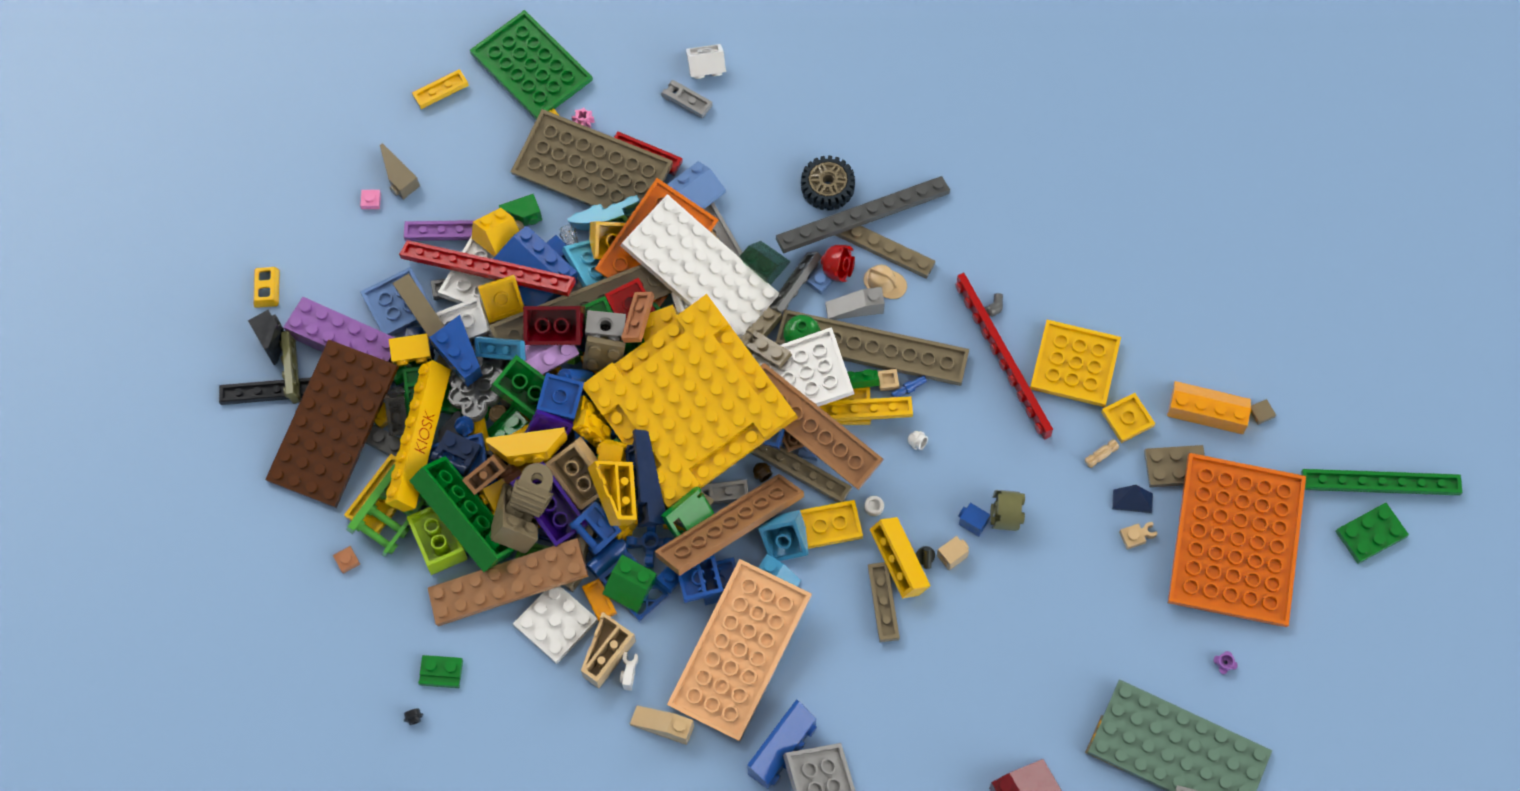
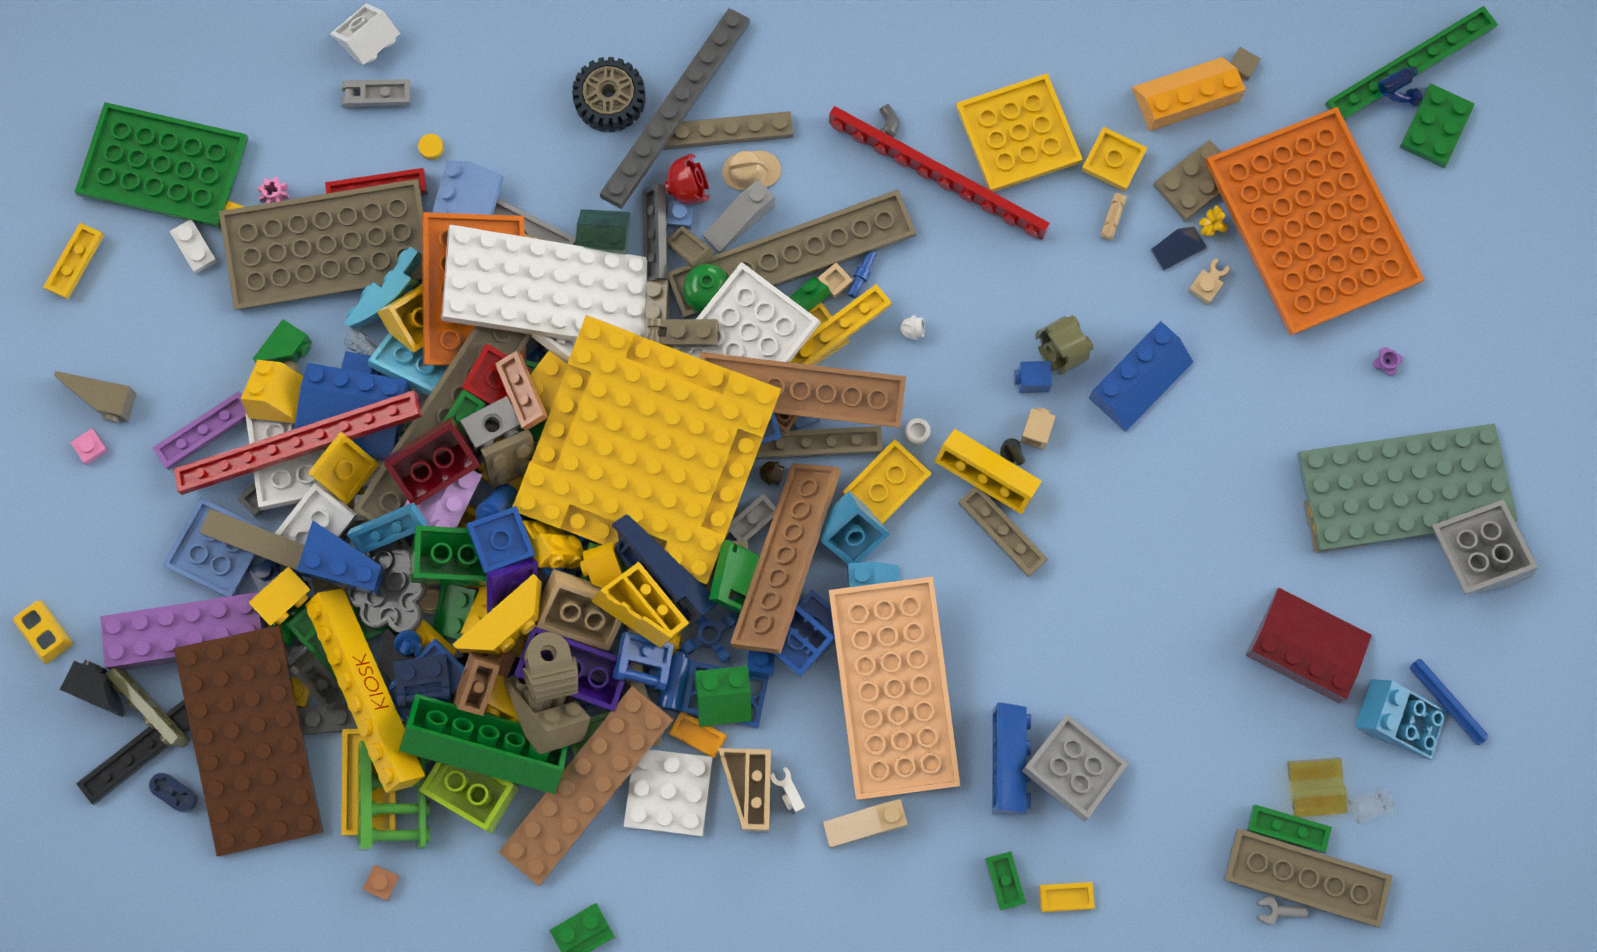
camera: 40 degrees left, 10 degrees up
(264, 428) = (169, 797): none -> dark blue beam
(514, 122) = (193, 246): none -> white plate
(696, 149) = (431, 146): none -> yellow tile
(810, 302) = (689, 247): none -> dark tan tile
(1046, 564) = (1142, 376): none -> blue slope
(1167, 498) = (1213, 222): none -> yellow plant
(1355, 484) = (1397, 80): none -> clear blue plant

